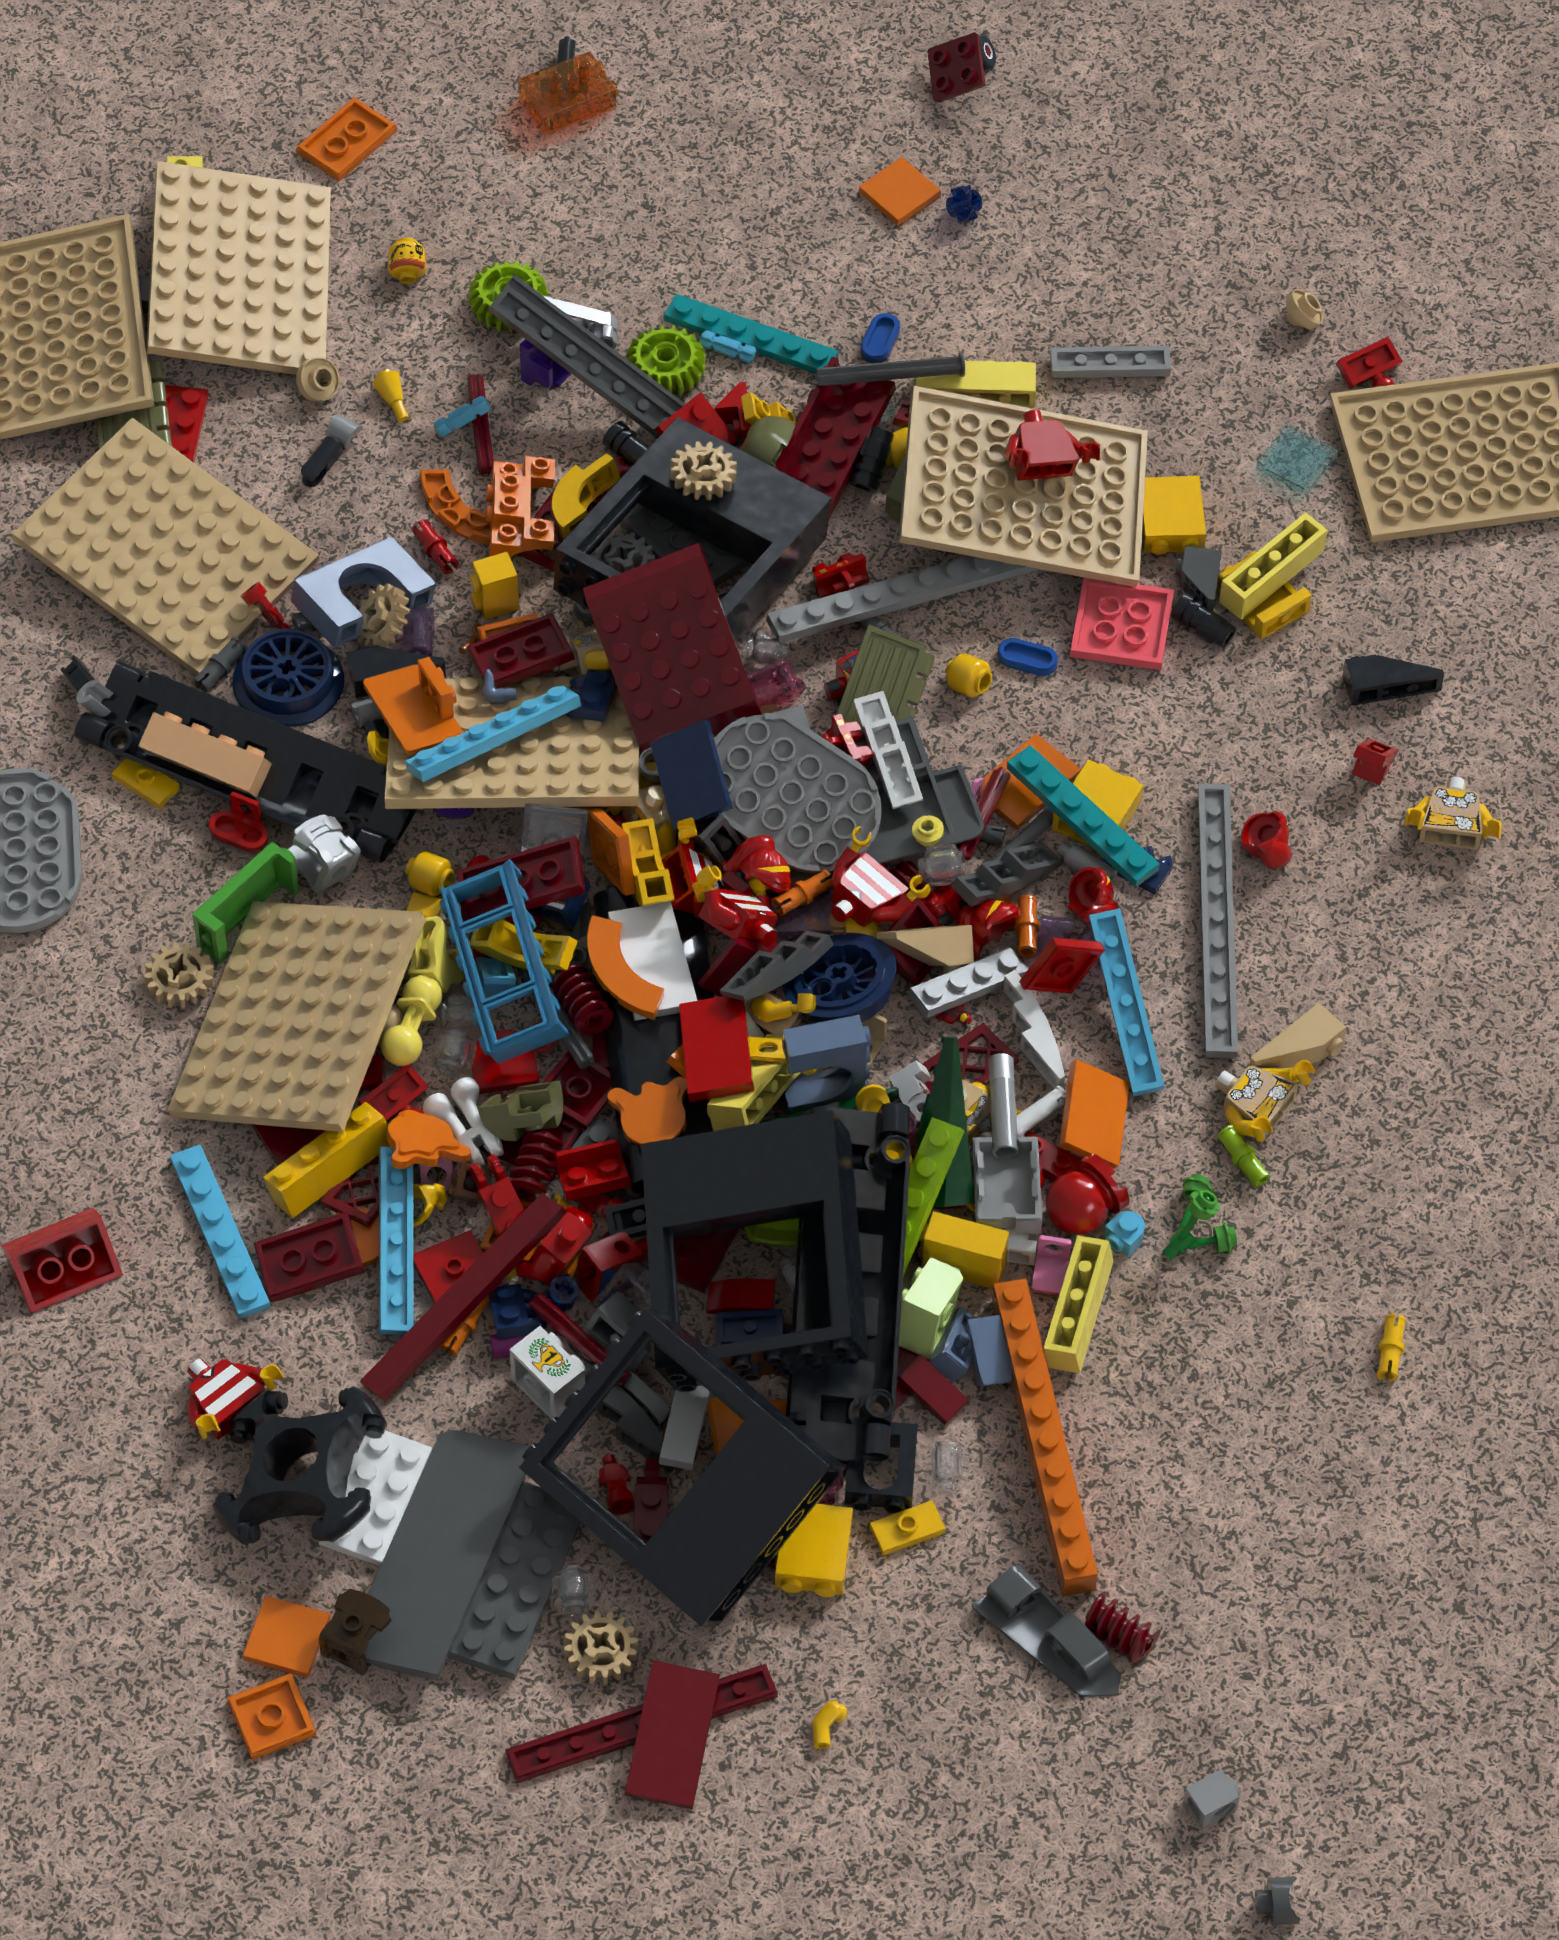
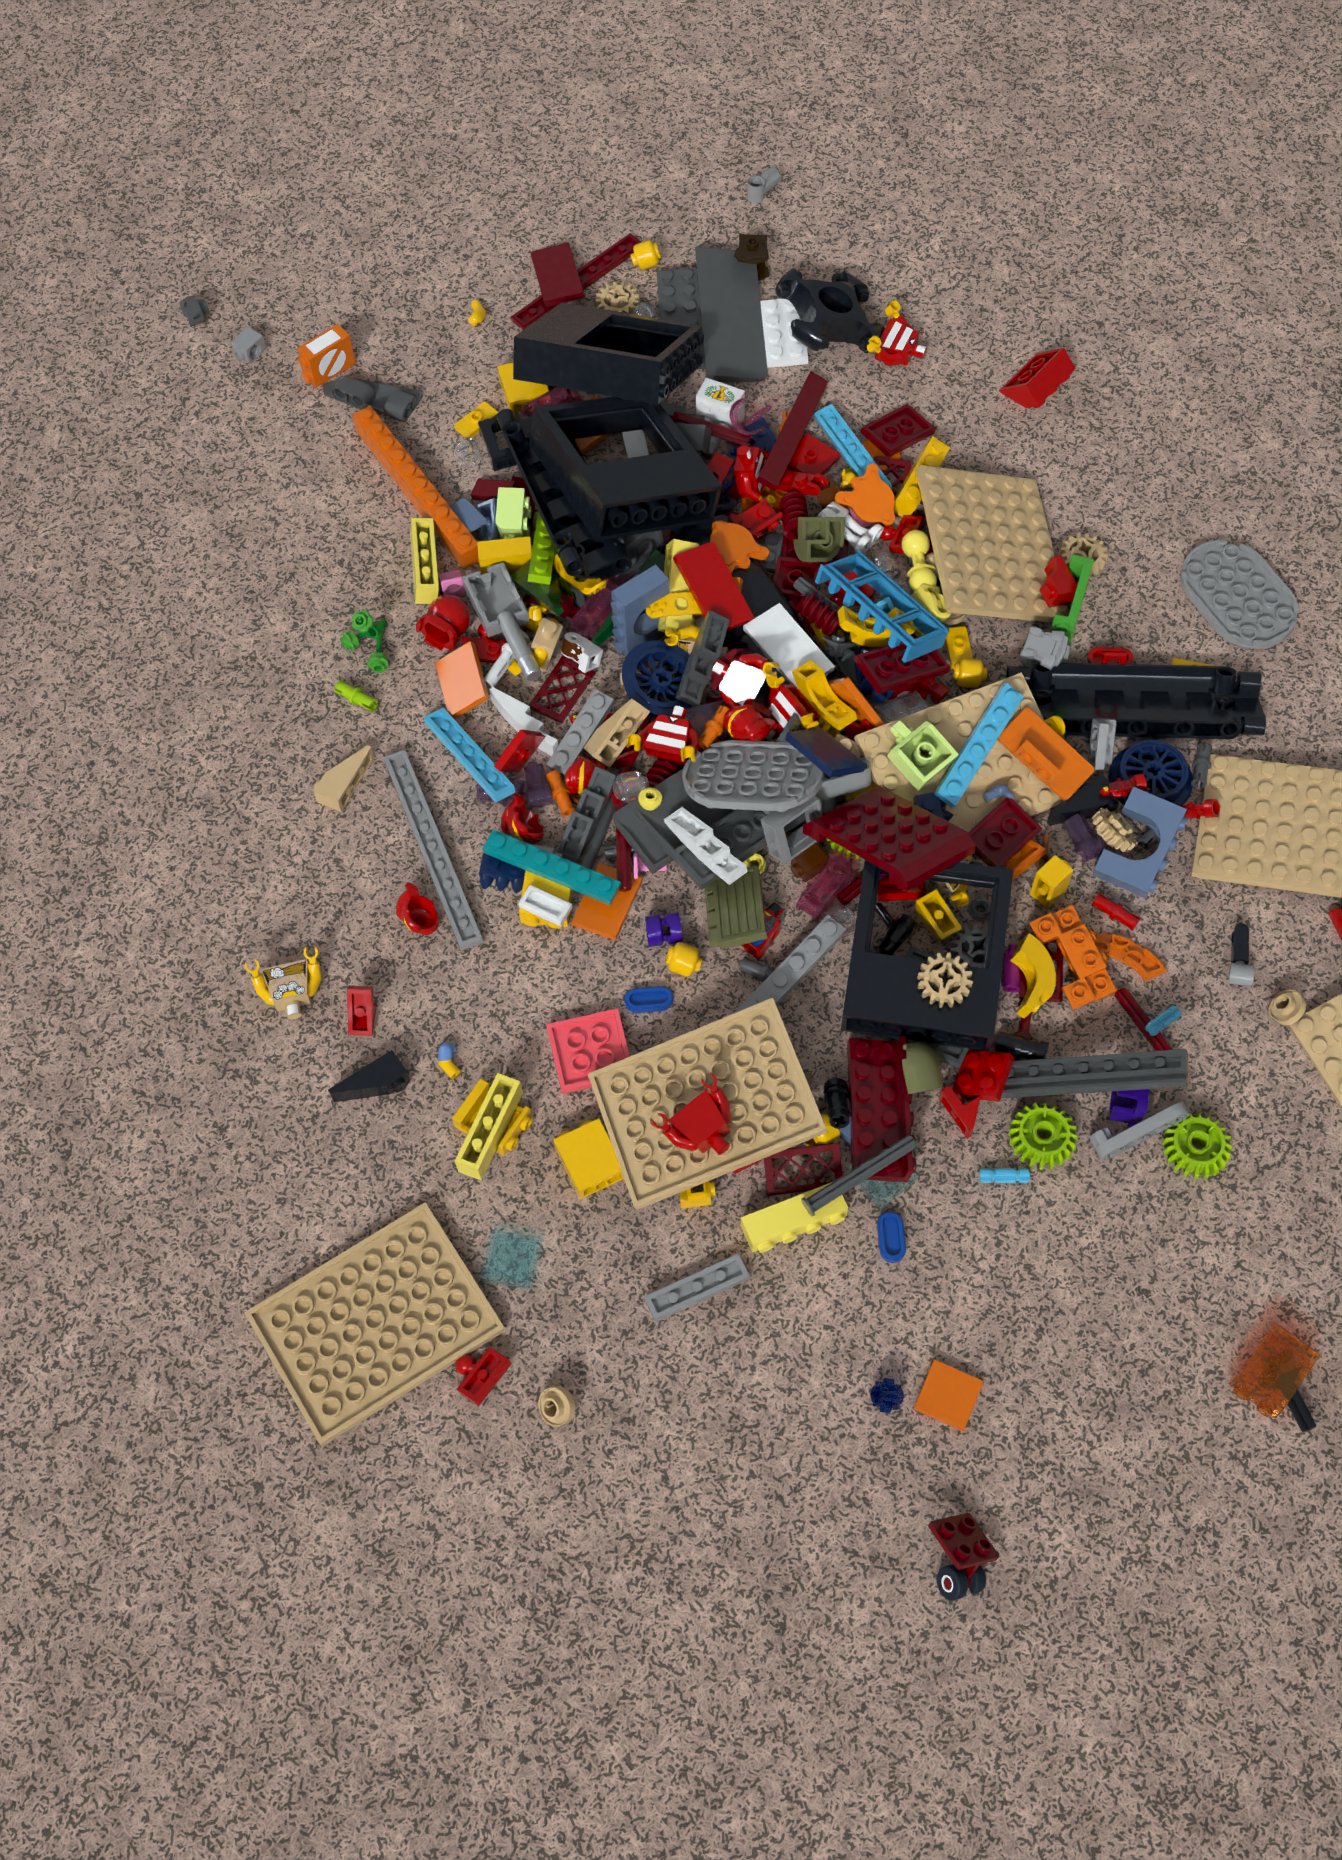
camera: 160 degrees right, 5 degrees up
(89, 690) = (1263, 692): piece -> none
(205, 754) = (1164, 686): light nougat brick -> none
(220, 1231) = (961, 431): medium azure plate -> none
(250, 921) = (1060, 585): none -> red arch
(254, 1786) = (759, 185): none -> light grey piece
(271, 1716) = (775, 219): orange tile -> none
(286, 1636) = (789, 254): orange tile -> none
(332, 714) = (1101, 742): none -> light grey bracket
(348, 650) = (1121, 788): none -> red piece
(389, 387) = (1232, 1027): yellow cone -> none
(406, 260) = (1293, 1144): yellow head -> none
(514, 1716) = (646, 255): none -> yellow head
(531, 1288) = (740, 426): none -> clear pink helmet
(575, 732) = (912, 744): none -> yellowish green hinge
(614, 972) = (806, 618): orange tile -> none
(757, 409) = (937, 1111): yellow slope -> none
(766, 339) = (993, 1195): teal plate -> none
(842, 576) = (822, 996): red hips -> none
(844, 736) = (728, 829): red hips -> none
(976, 713) = (655, 933): none -> dark purple wheel
(1099, 1705) = (326, 356): none -> orange brick
(1109, 775) = (545, 905): none -> white tile
(1119, 1630) = (330, 406): dark red piece -> none
(1125, 1232) = (410, 618): medium azure plate -> none
(1199, 573) = (546, 1111): dark grey slope -> none
(1206, 622) = (538, 1077): black axle -> none
(1261, 1096) = (357, 727): torso -> none
(1293, 675) = (445, 1054): none -> arm
(1391, 1347) = (222, 616): yellow pin -> none

